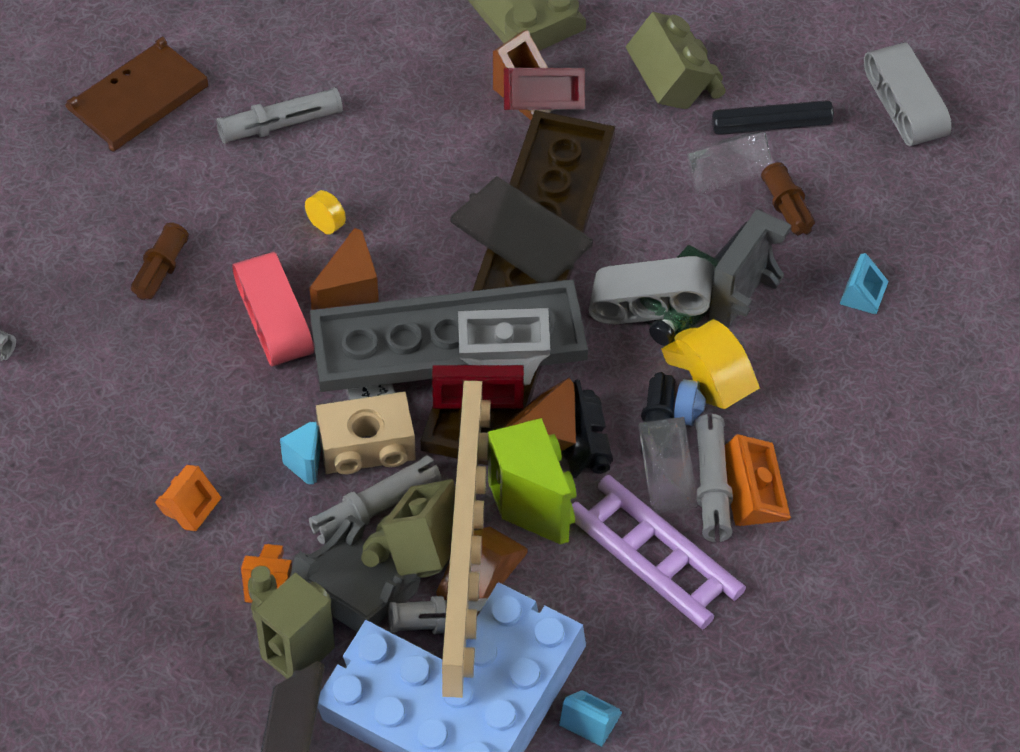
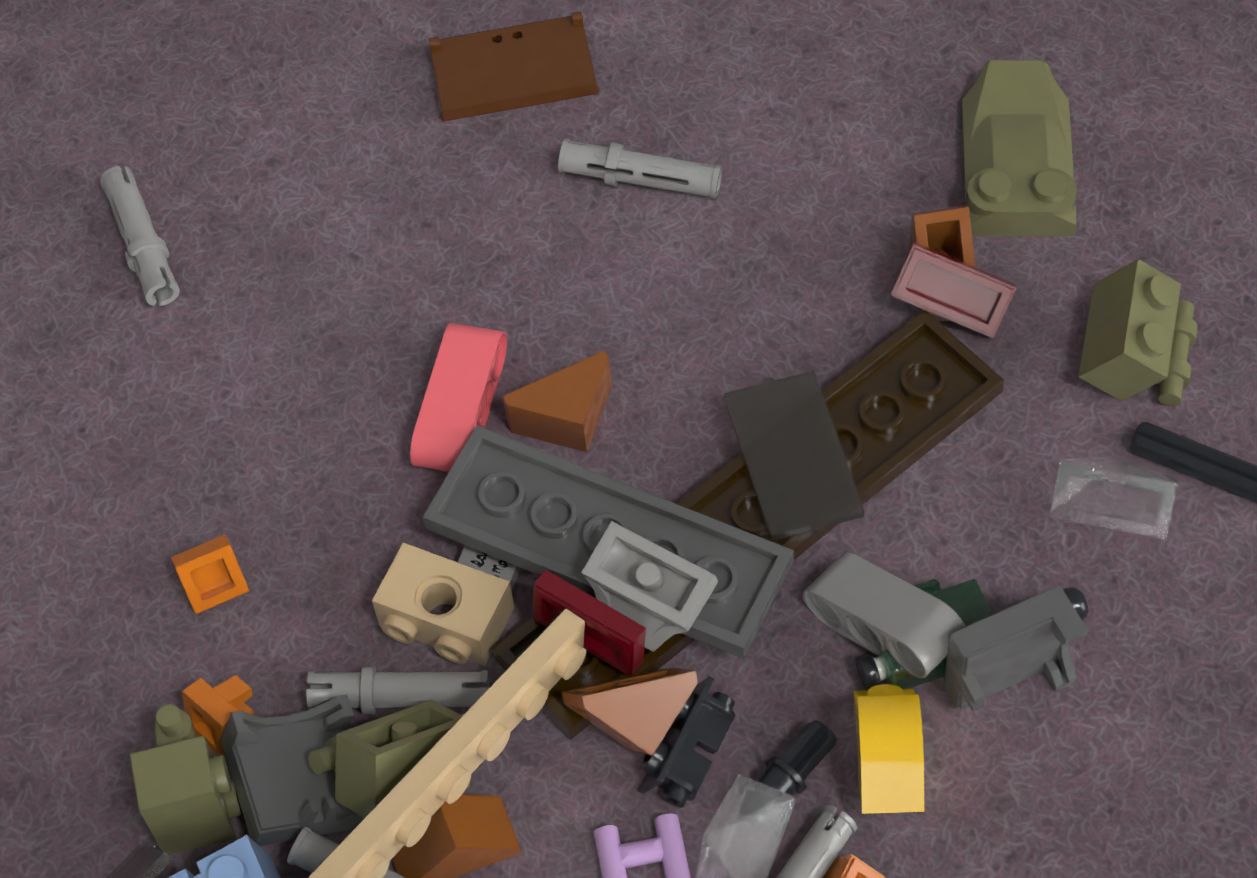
camera: 40 degrees right, 5 degrees up
(159, 261) = (387, 277): reddish brown axle -> none
(302, 451) = (359, 585): medium azure slope -> none
(325, 212) = (600, 312): yellow tile -> none
(530, 481) = (564, 768): lime slope -> none
(689, 401) = (828, 778): medium blue tile -> none
(788, 198) = (1150, 584): reddish brown axle -> none
(864, 286) = (1163, 752): medium azure slope -> none

